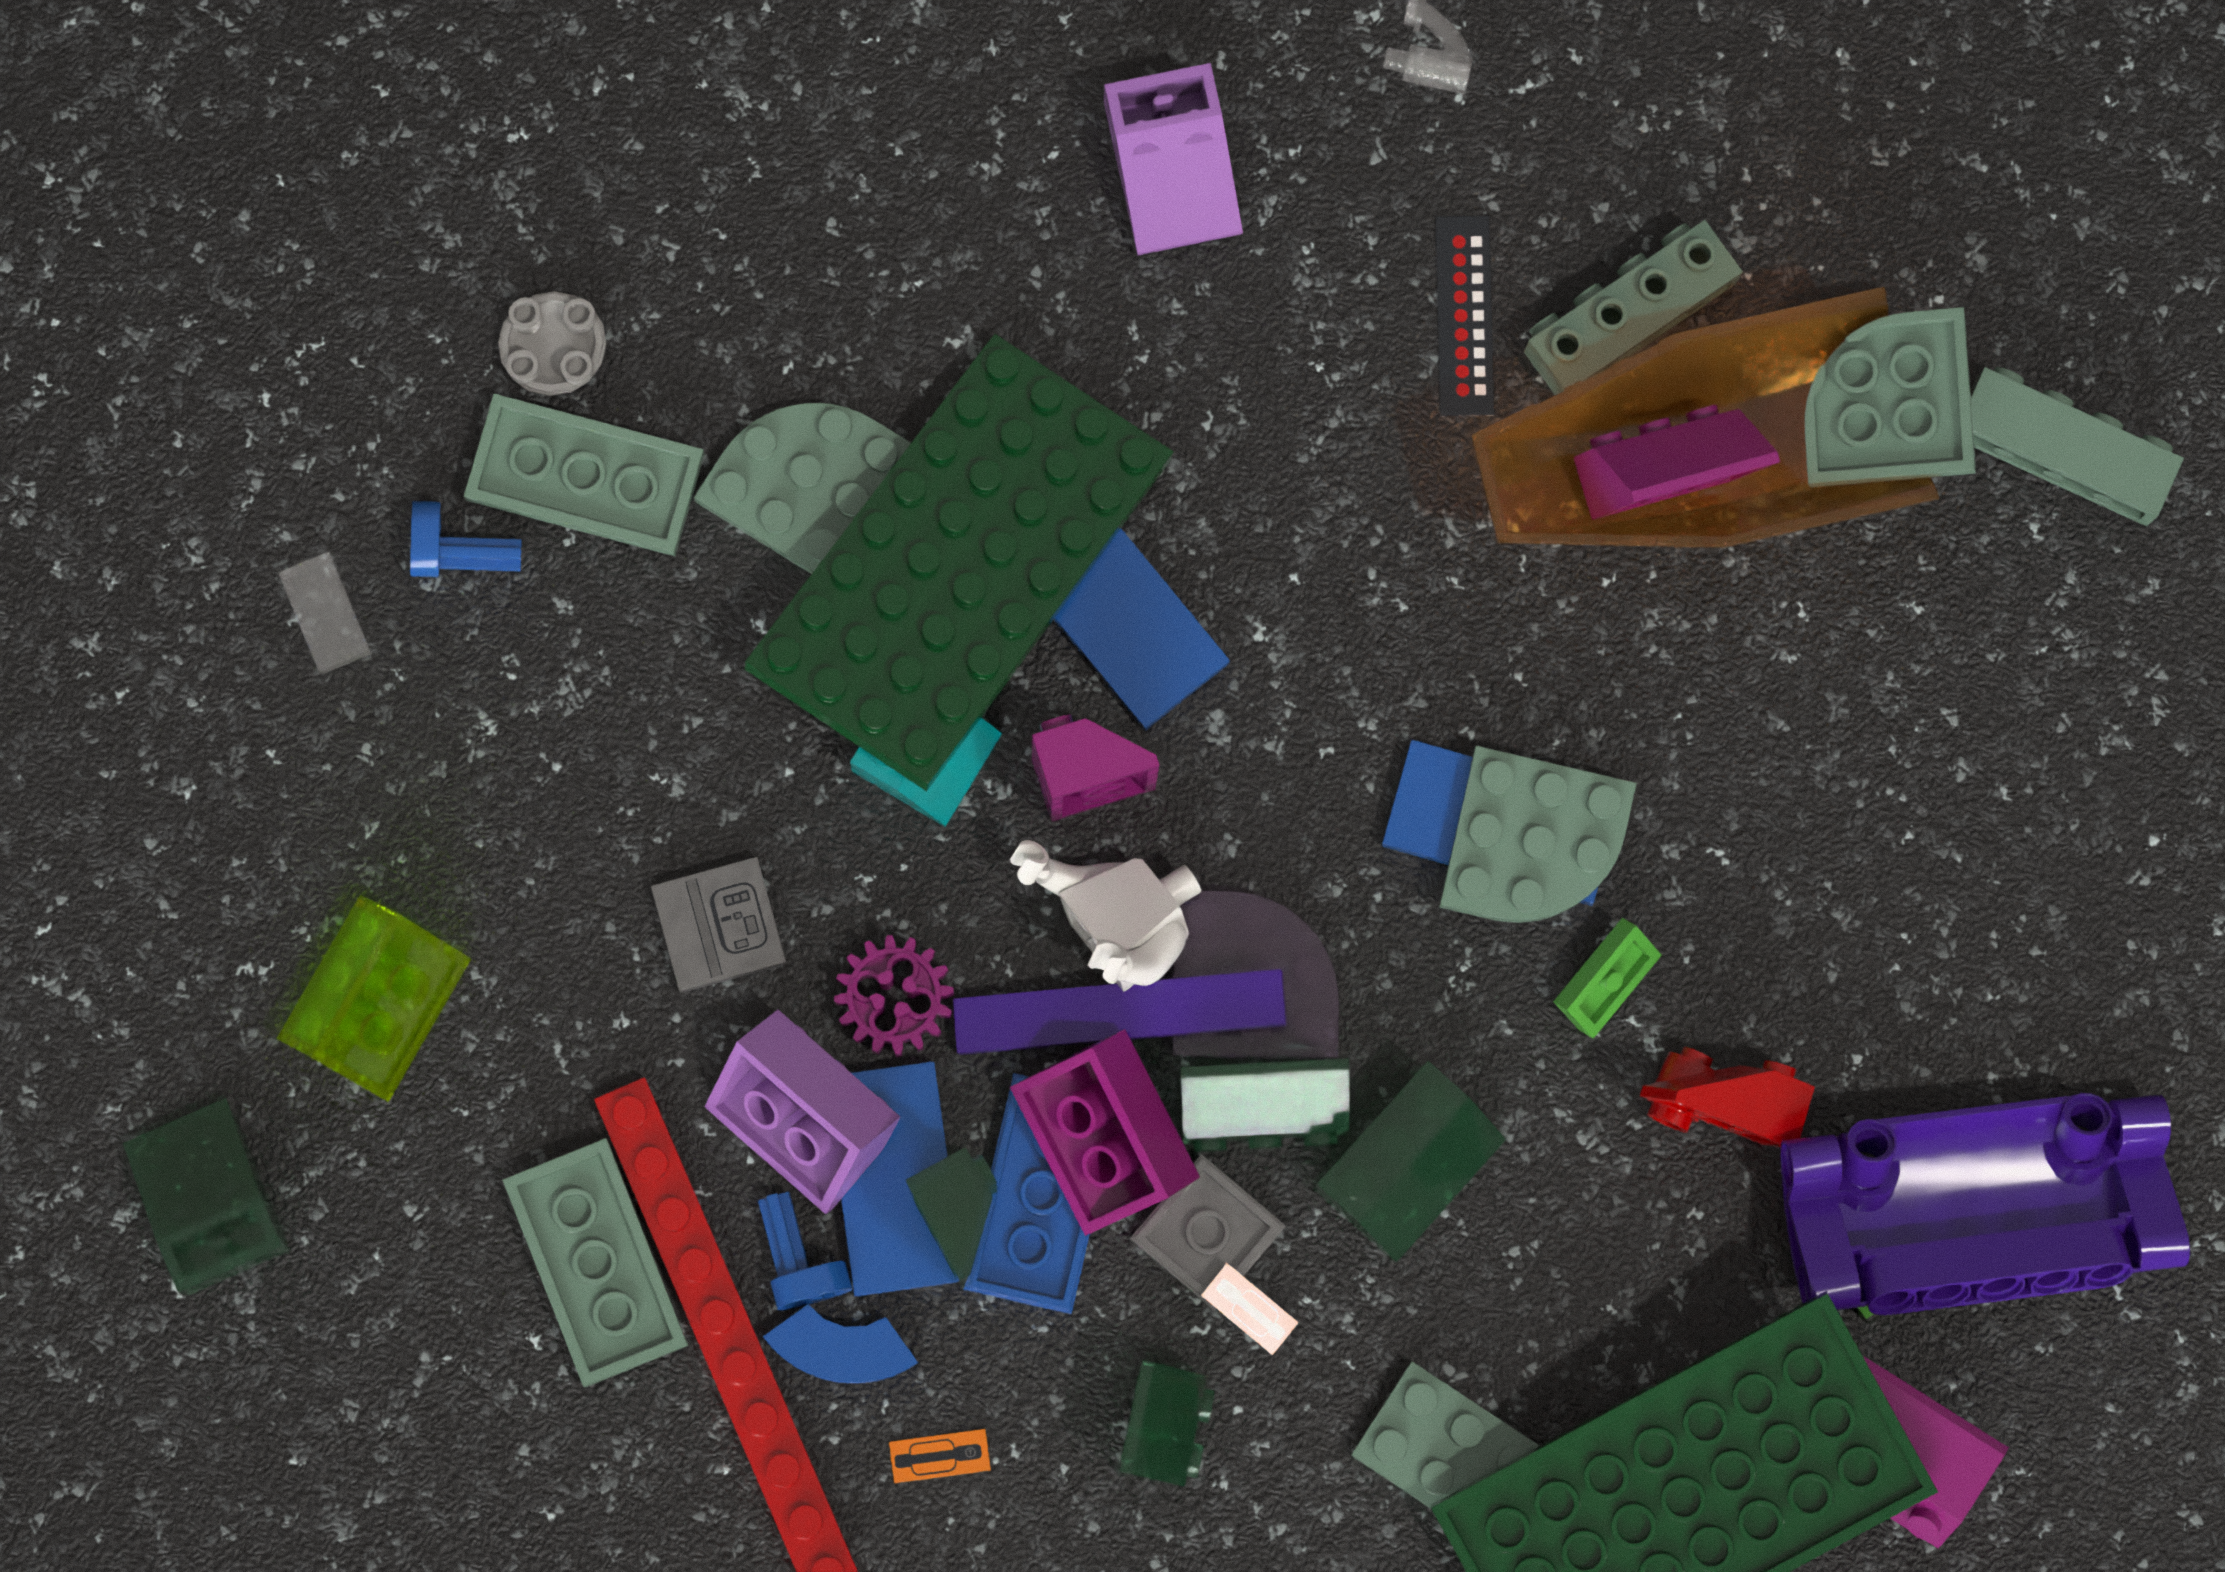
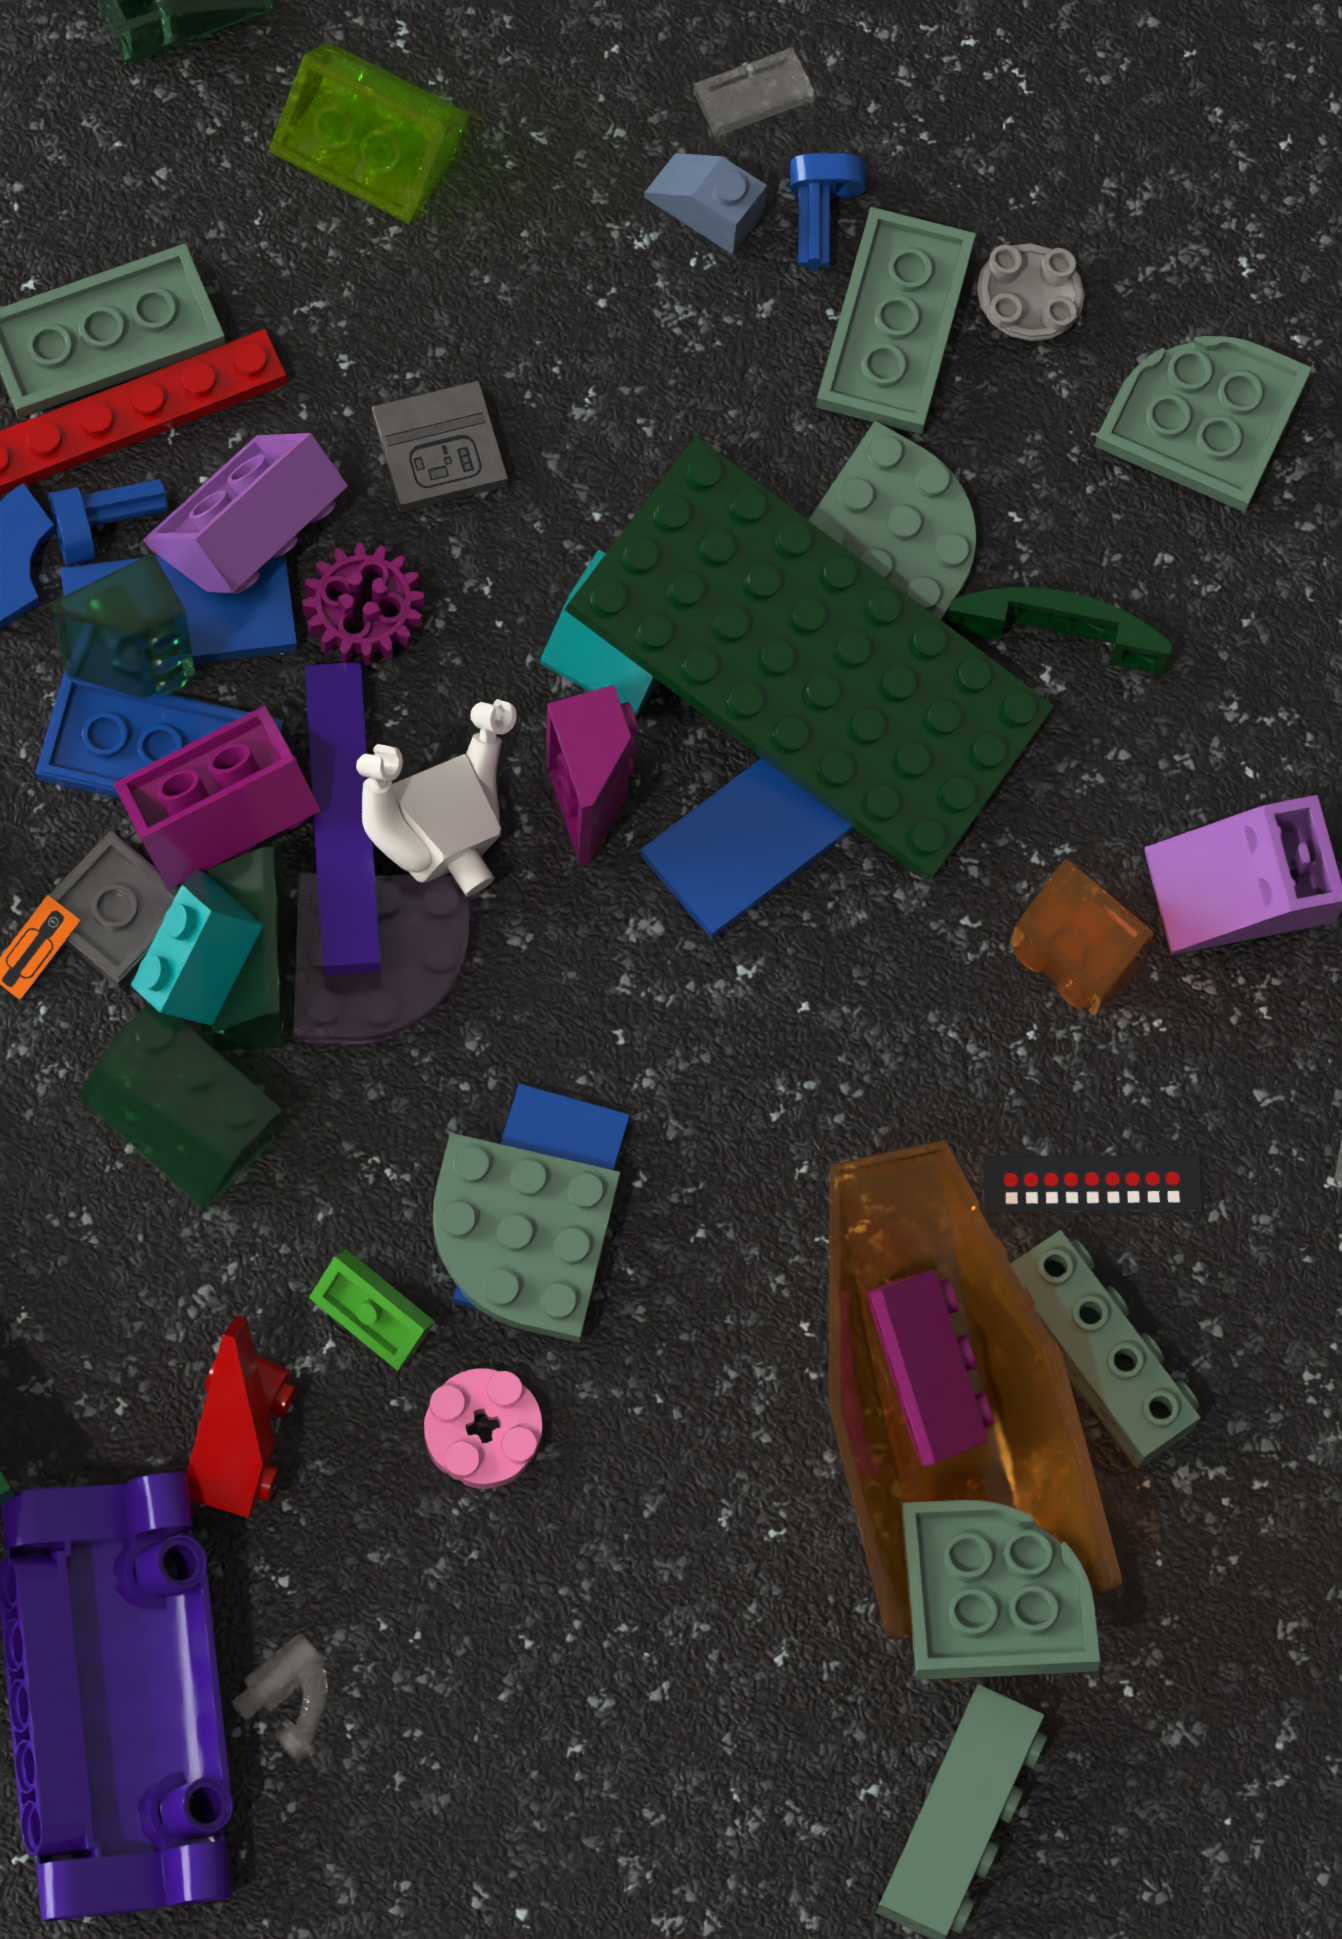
camera: 90 degrees right, 10 degrees down
(447, 659) = (710, 197): none -> sand blue slope
(687, 177) = (1206, 415): none -> sand green plate
(927, 263) = (1132, 640): none -> dark green slope
(1242, 314) = (1080, 939): none -> clear orange slope
(1273, 1145) = (197, 951): none -> teal slope
(1697, 902) = (463, 1455): none -> bright pink plate
(1955, 1061) = (275, 1680): none -> clear plant

